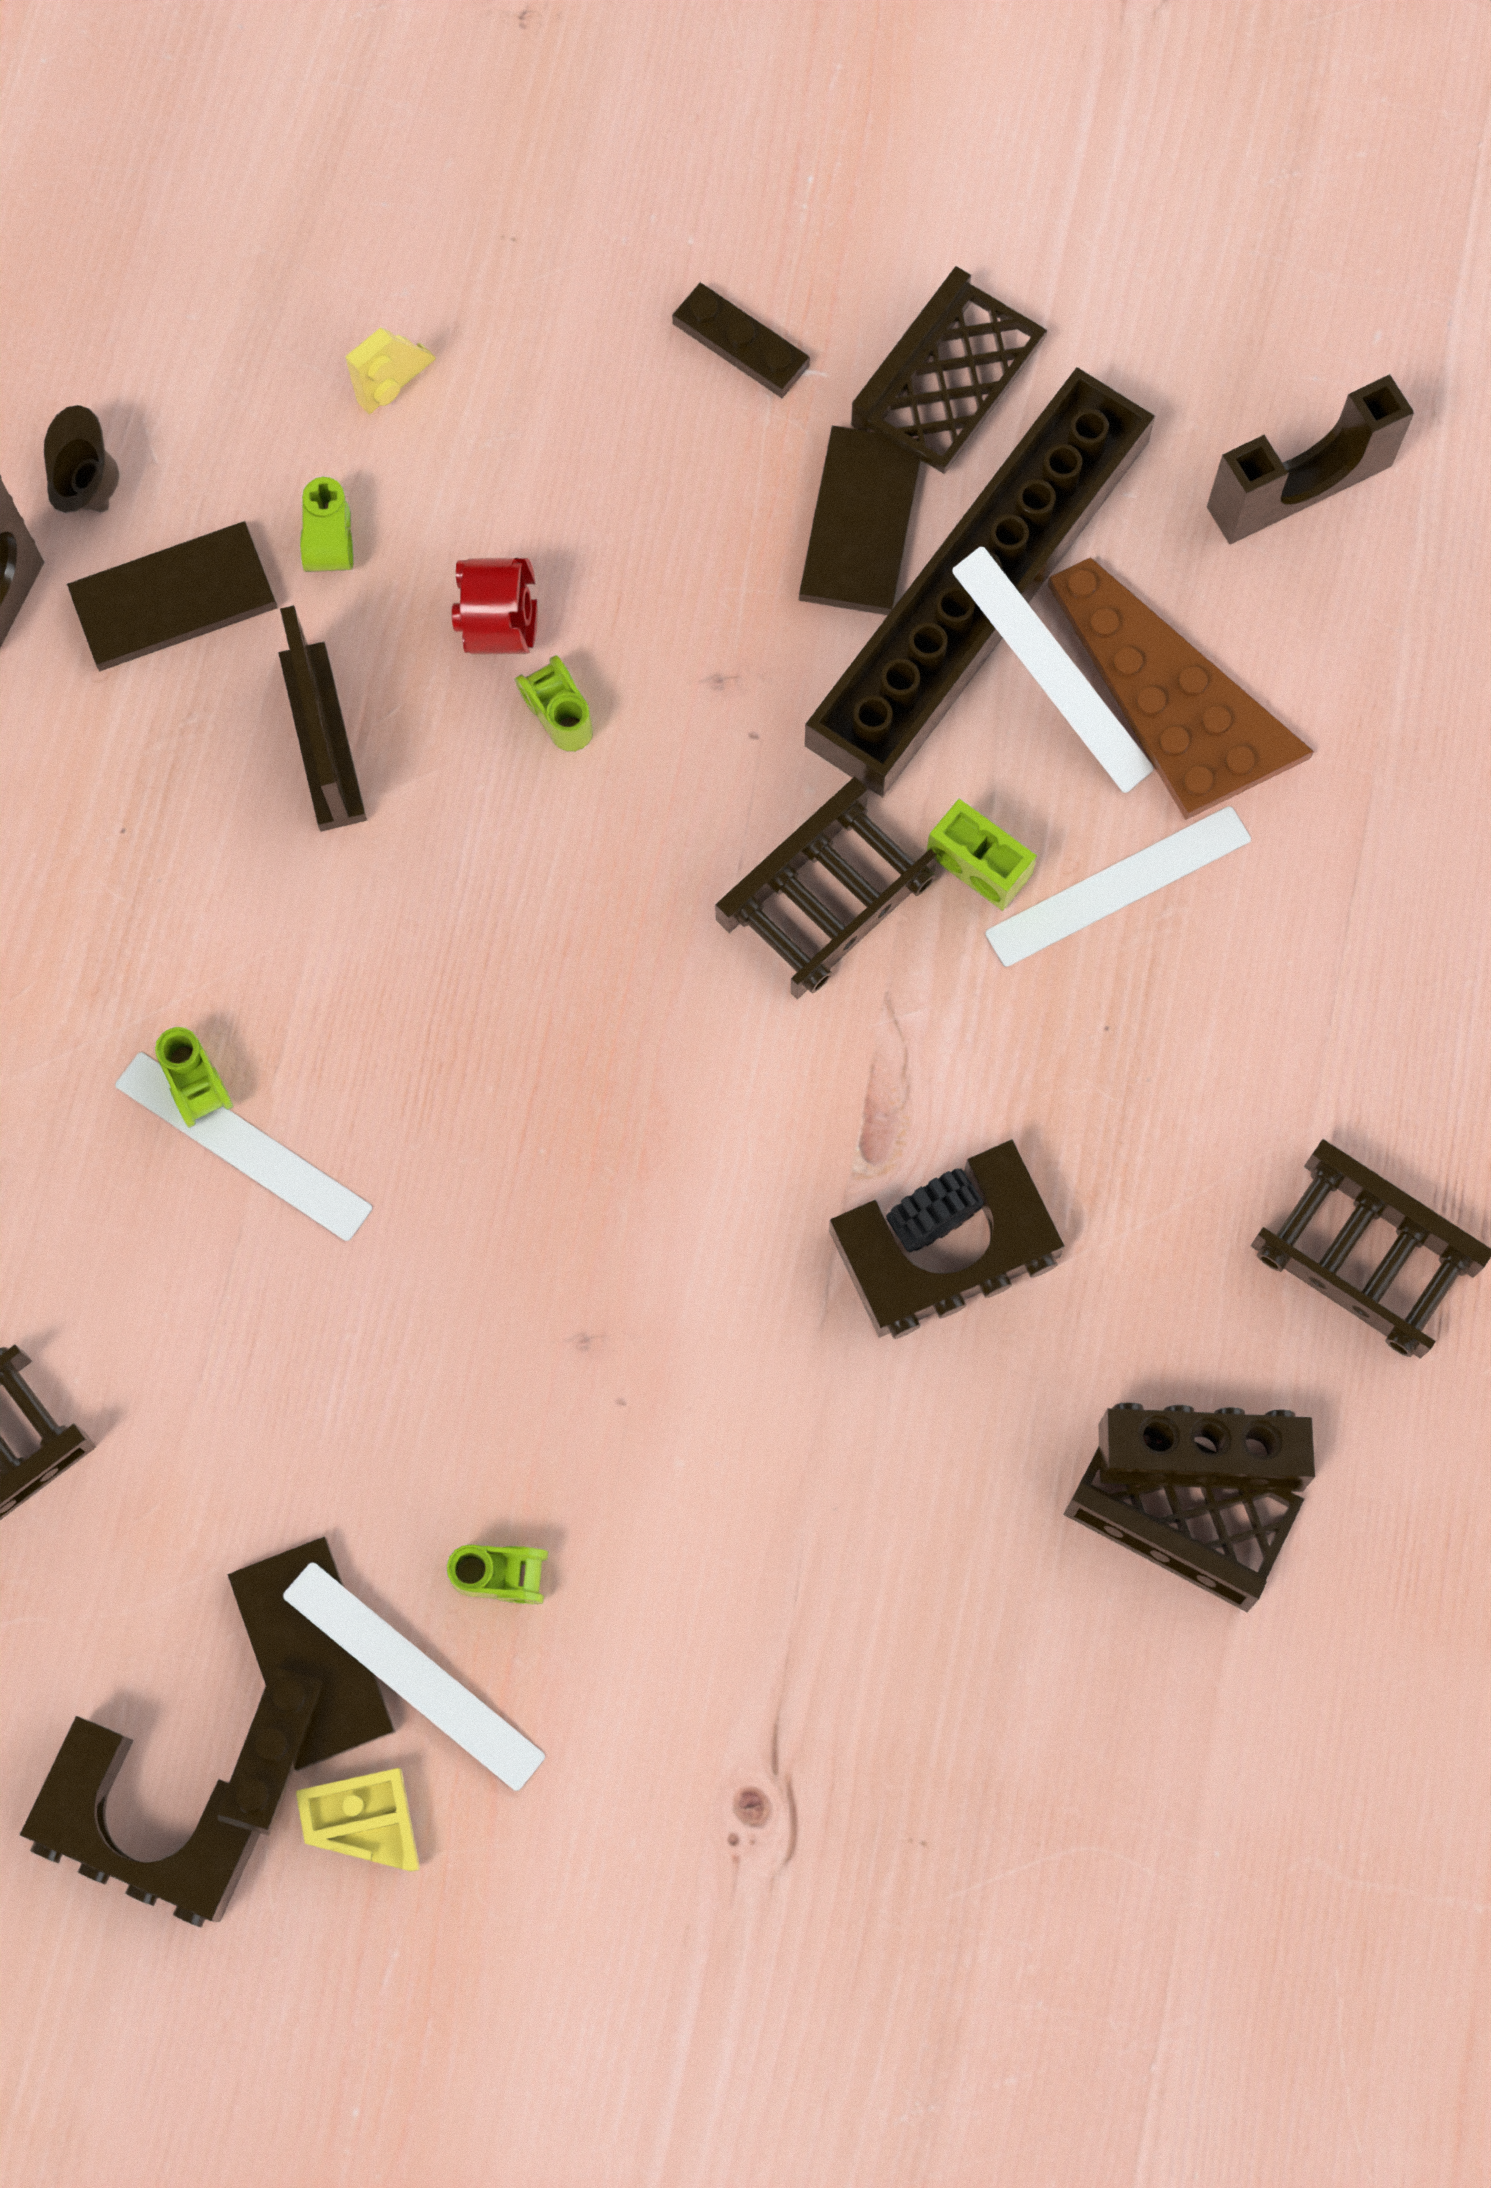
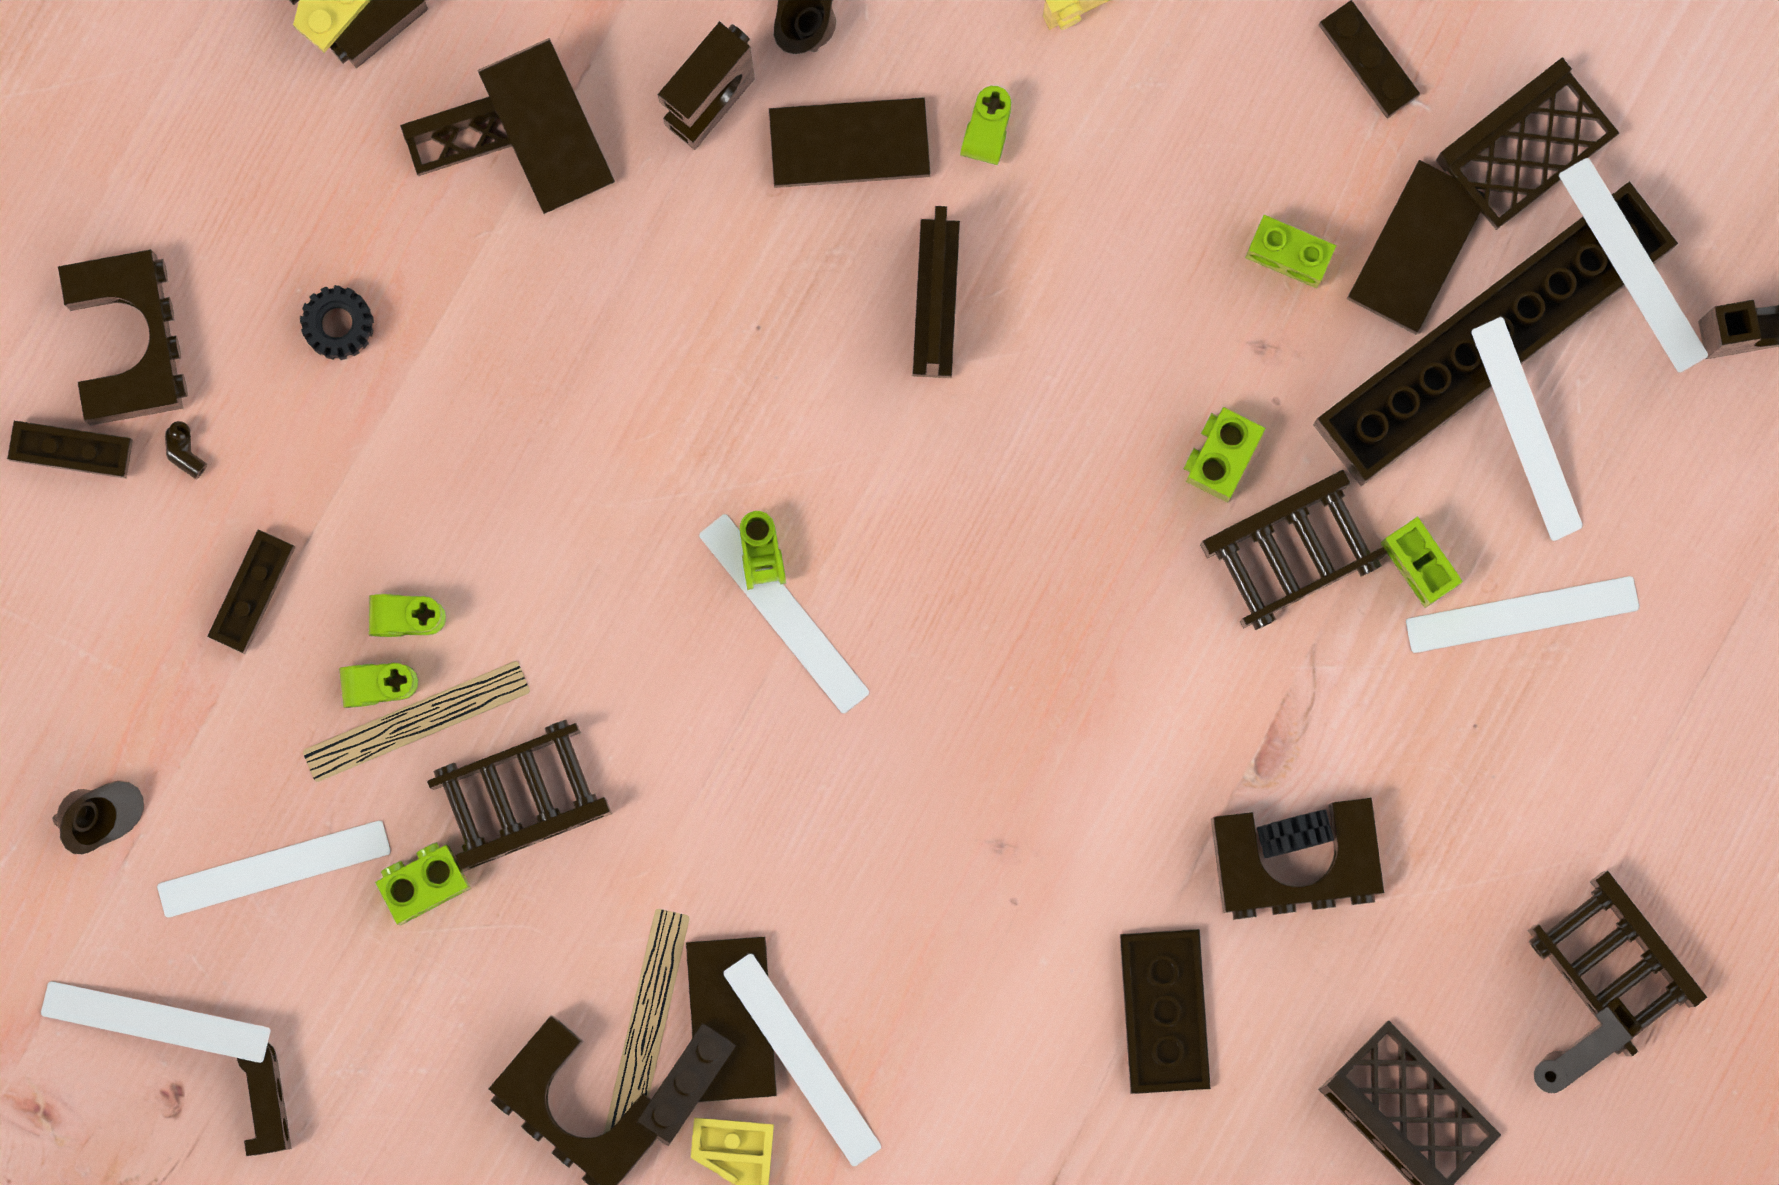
camera: 15 degrees right, 10 degrees up
(206, 1673) = (649, 1012): none -> tan sticker
(495, 606) = (1104, 238): red brick -> none
(502, 1573) = (889, 1005): lime piece -> none
(554, 697) = (1128, 323): lime piece -> none
(716, 561) = (1290, 251): none -> lime brick
(719, 806) = (1231, 457): none -> lime brick
(846, 1477) = (1165, 1011): none -> dark brown tile
(1113, 453) = (1633, 265): none -> white sticker
(1128, 1459) = (1378, 1067): dark brown brick -> none
(1187, 713) = (1622, 490): dark orange wing -> none
(1350, 1393) = (1563, 1068): none -> dark brown leg

